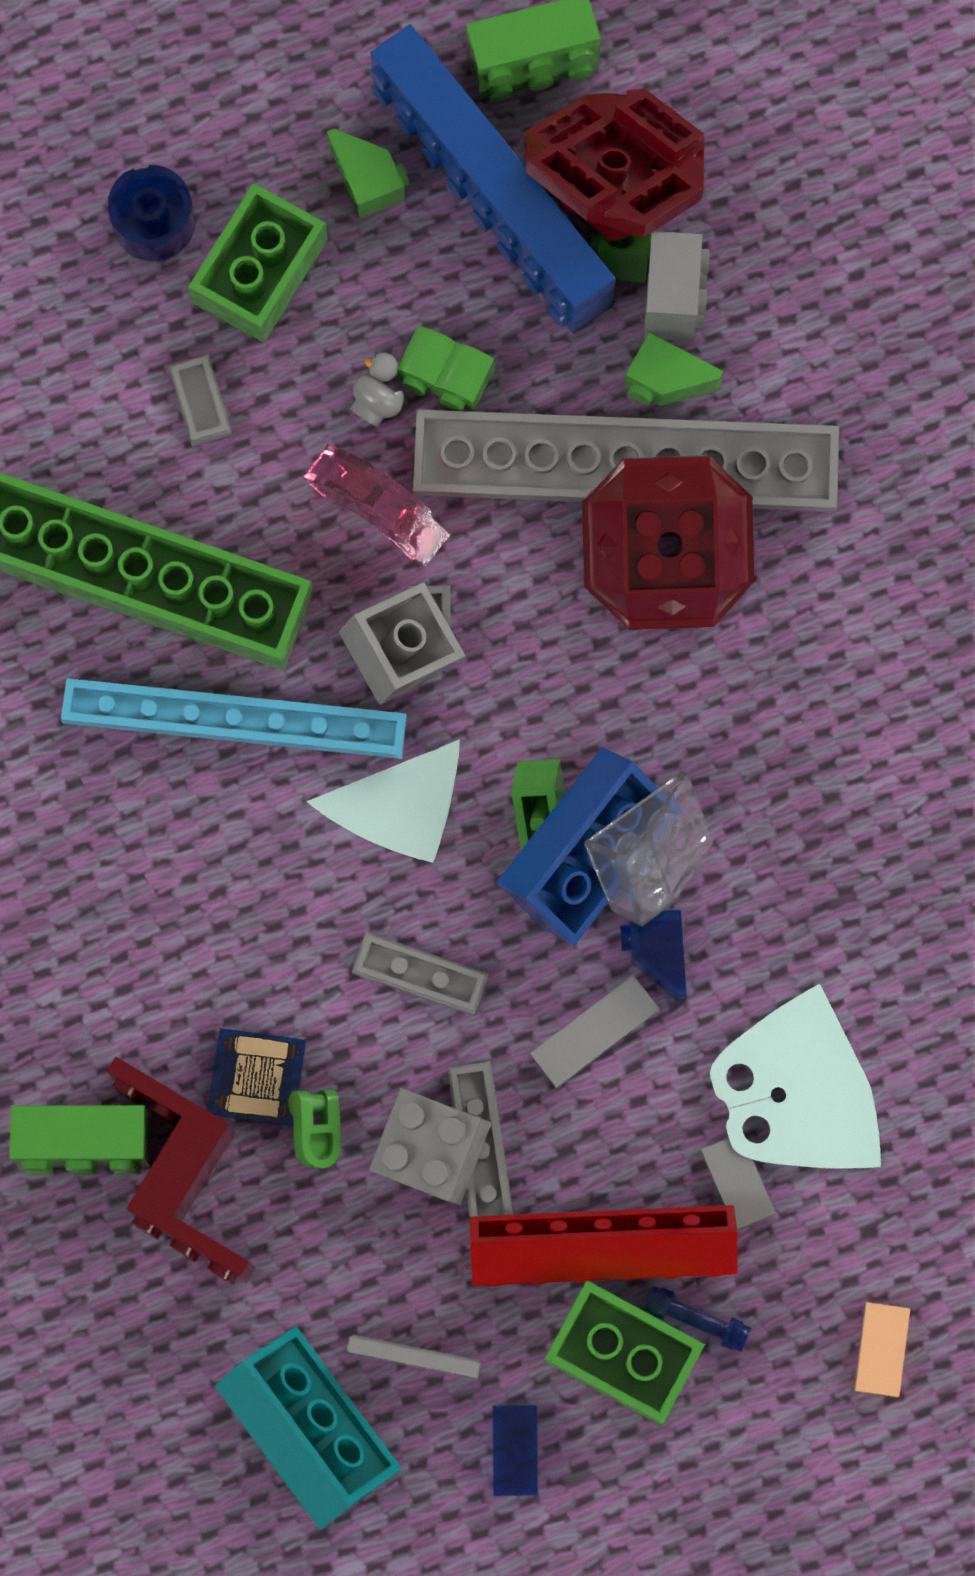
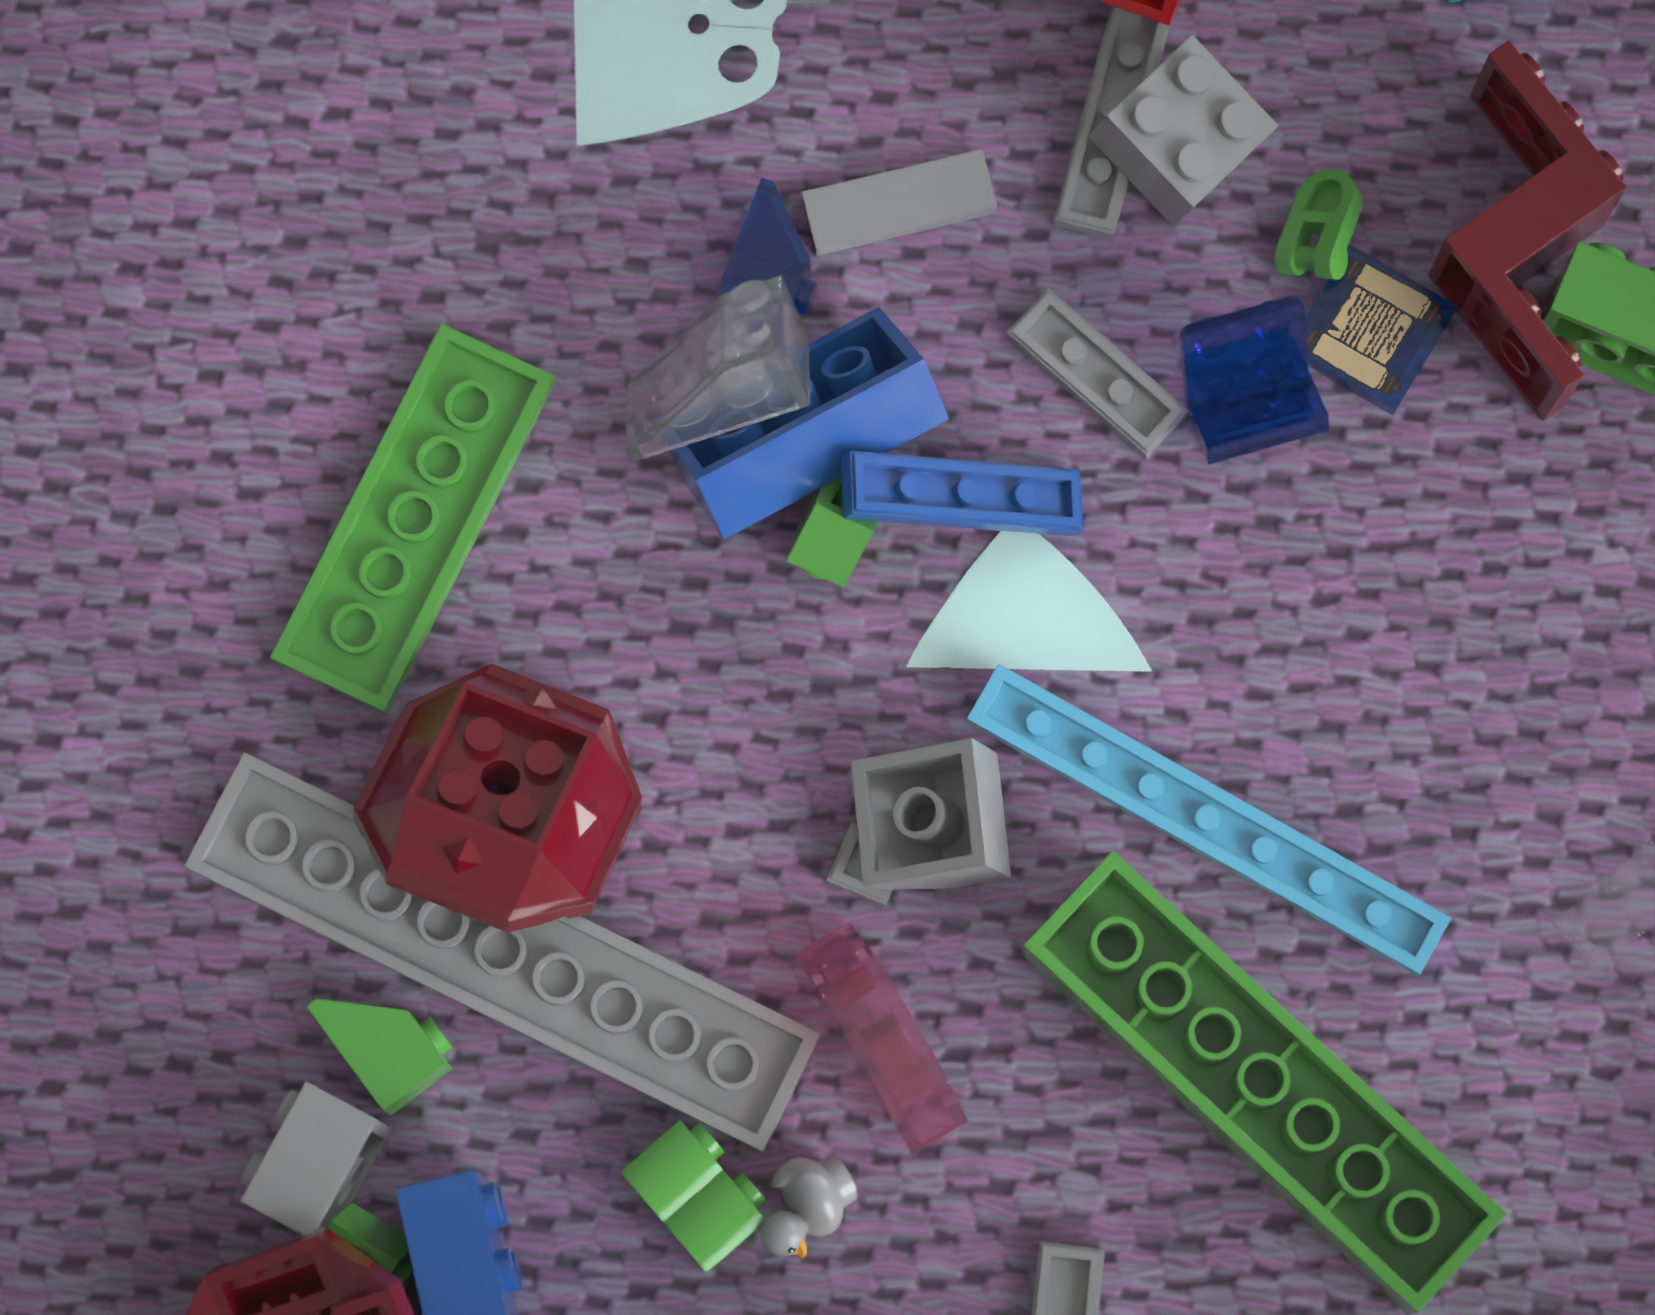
camera: 155 degrees left, 0 degrees up
(316, 996) = (1250, 380): none -> clear blue bracket
(468, 845) = (961, 493): none -> blue tile
(804, 696) = (413, 519): none -> bright green plate

